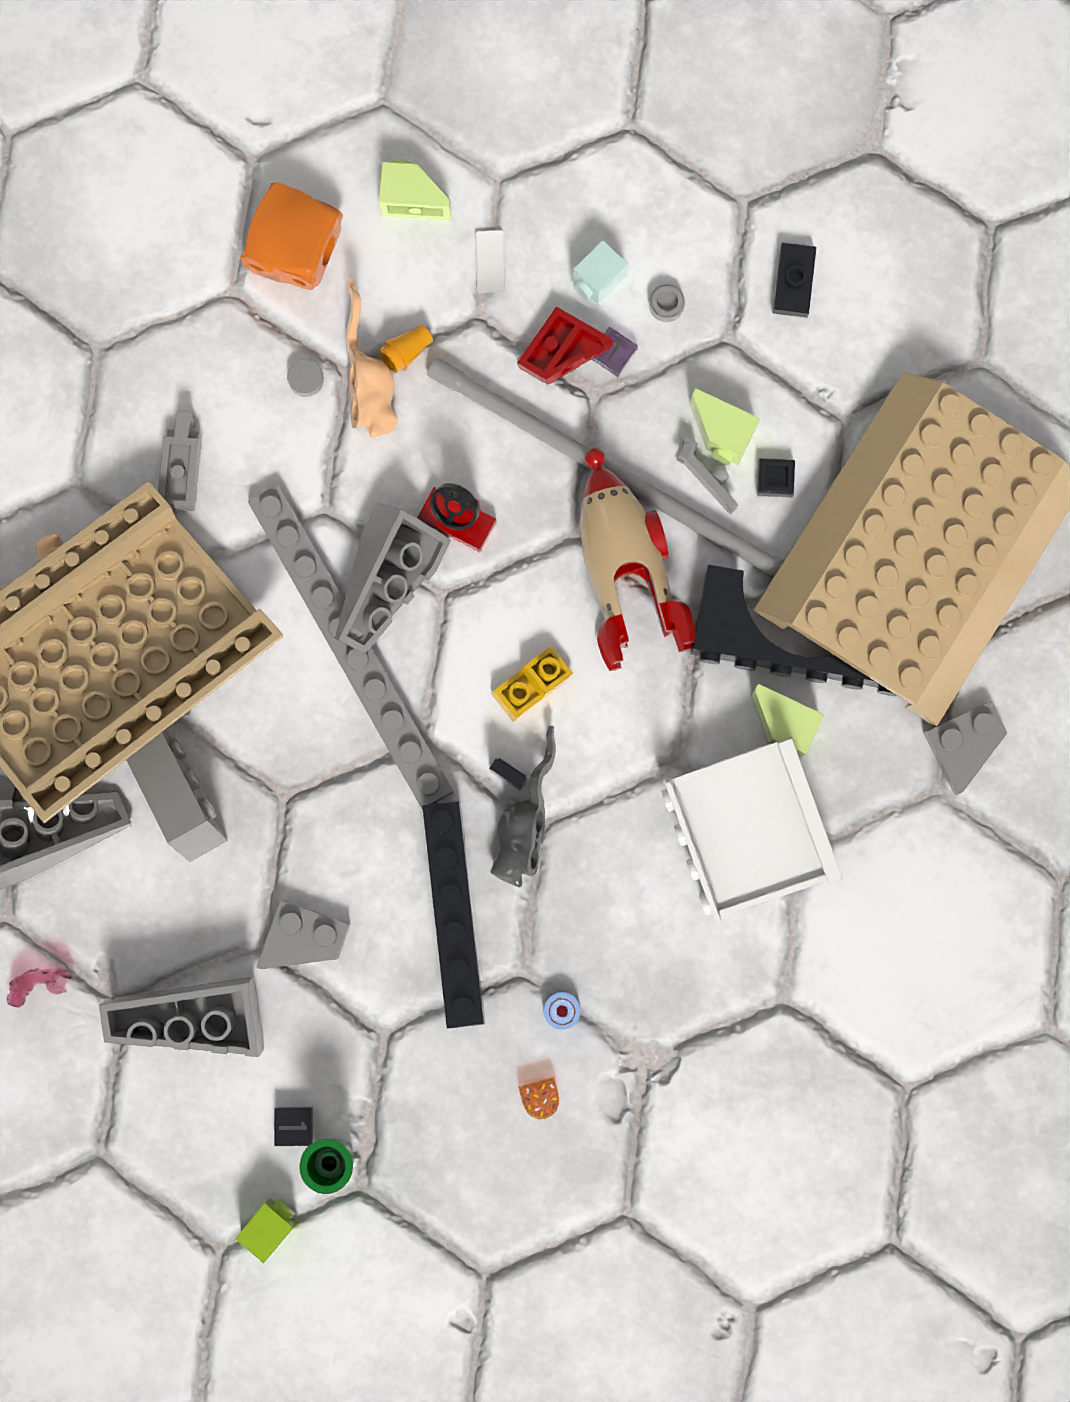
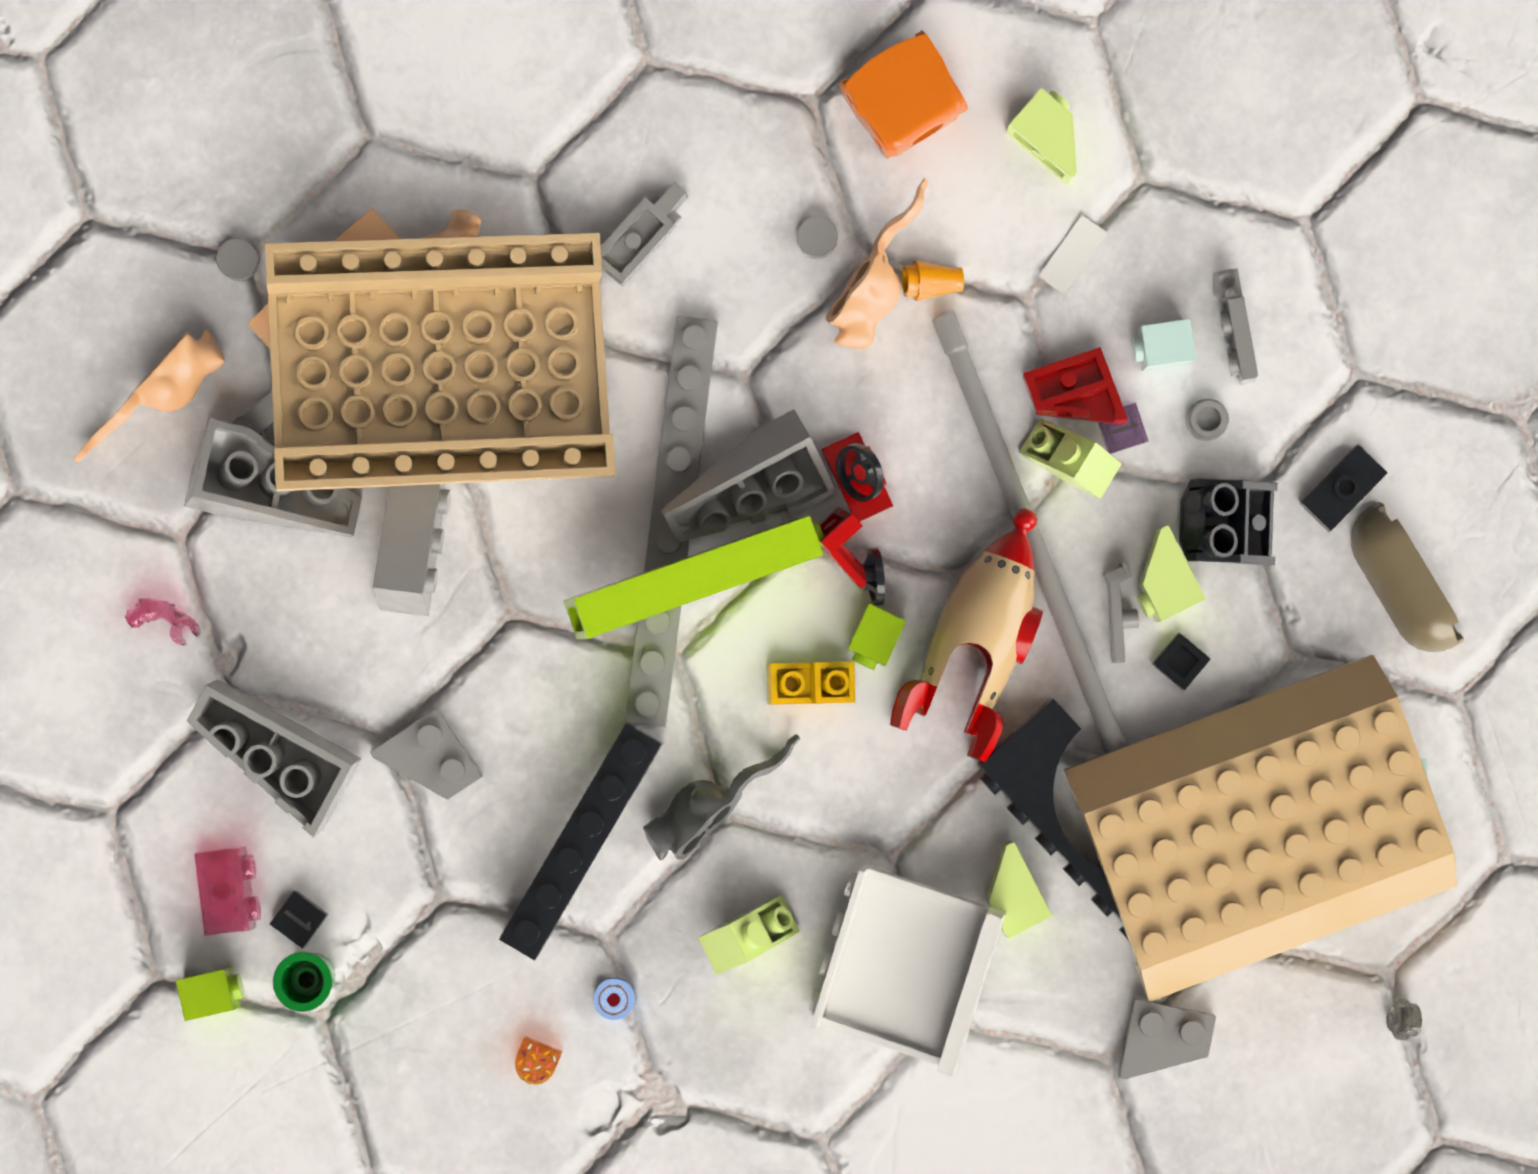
camera: 30 degrees right, 5 degrees up
(226, 1145) = (227, 890): none -> clear pink bracket
(392, 666) = (694, 577): none -> lime brick
(508, 773) = (726, 750): black tile -> none
(515, 576) = (837, 530): none -> red piece
(553, 616) = (875, 637): none -> lime brick
(594, 395) = (1070, 457): none -> yellowish green slope
(622, 892) = (749, 935): none -> yellowish green slope
(637, 223) = (1235, 323): none -> light grey hinge
(733, 358) = (1227, 521): none -> black slope
(885, 311) = (1403, 582): none -> dark tan brick

